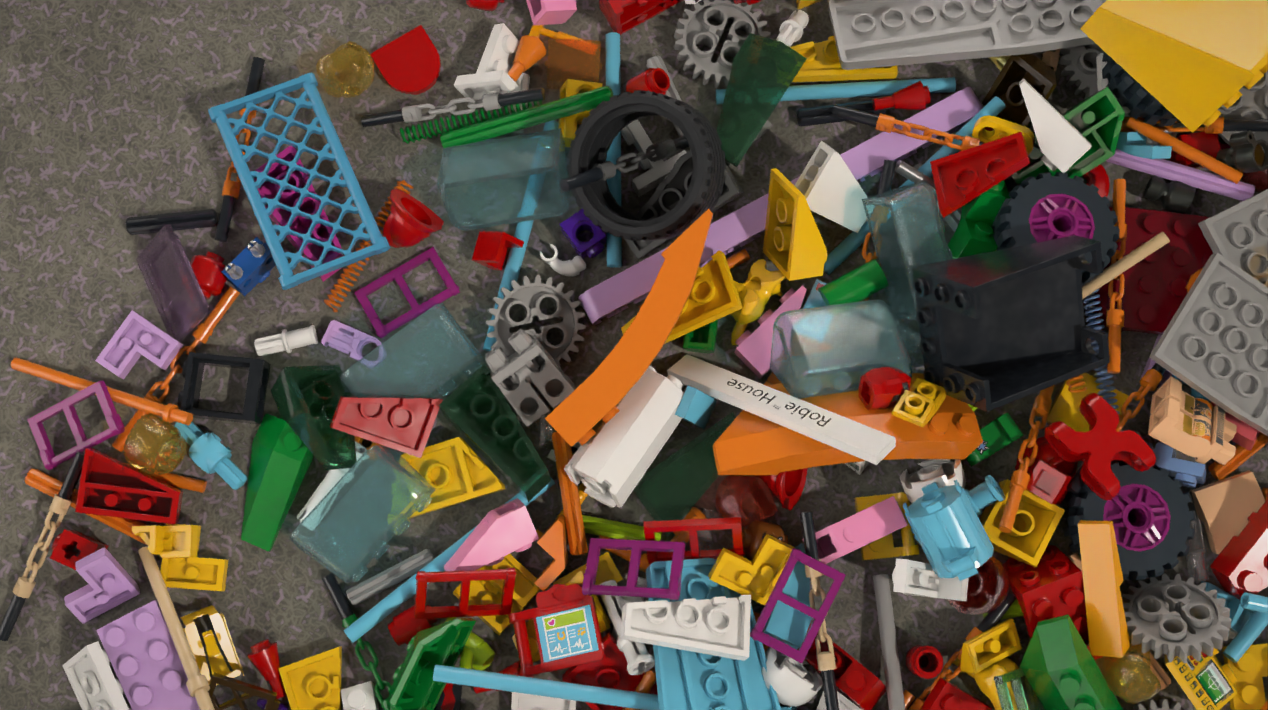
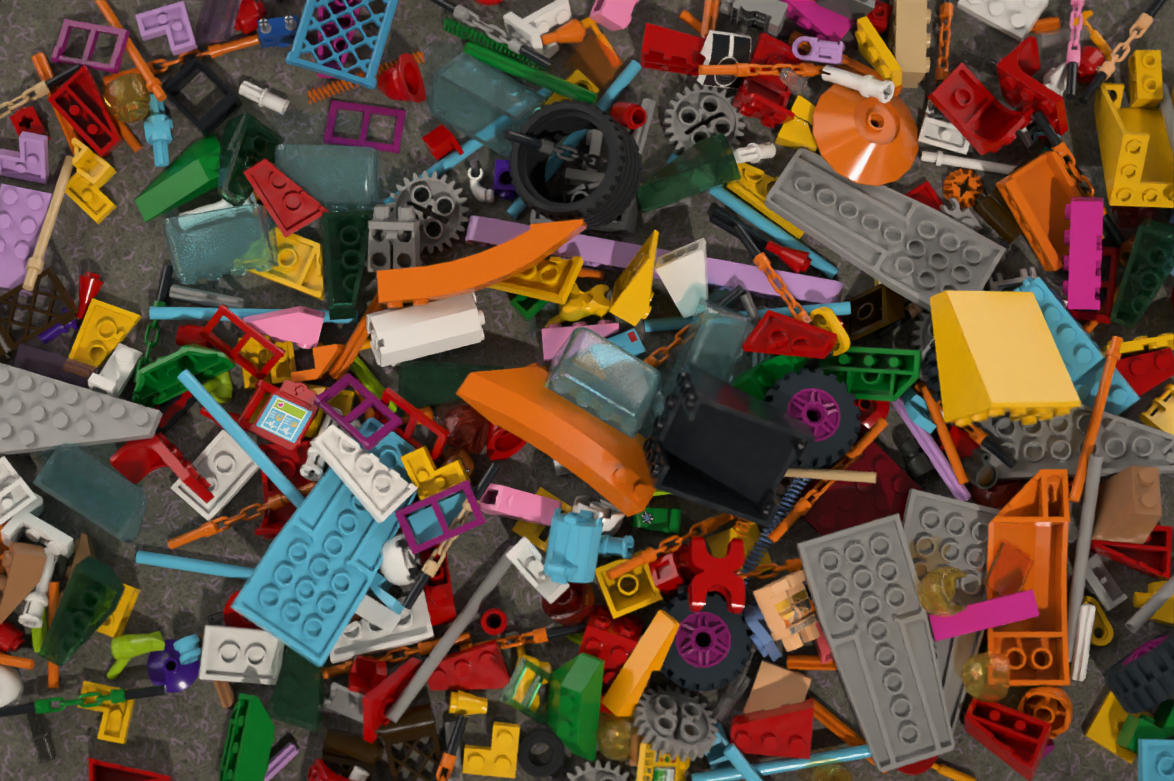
camera: 35 degrees right, 0 degrees up
(215, 657) = (59, 260): yellow piece -> none
(347, 339) = (302, 126): lavender piece -> none
(696, 407) = (483, 345): medium azure slope -> none
(784, 409) = (530, 384): white tile -> none
(855, 285) = (651, 350): green brick -> none
(882, 387) = (608, 424): red rock -> none
(920, 402) = (621, 453): yellow slope -> none
(990, 647) = (543, 646): yellow slope -> none
(1055, 135) = (861, 351): white slope -> none

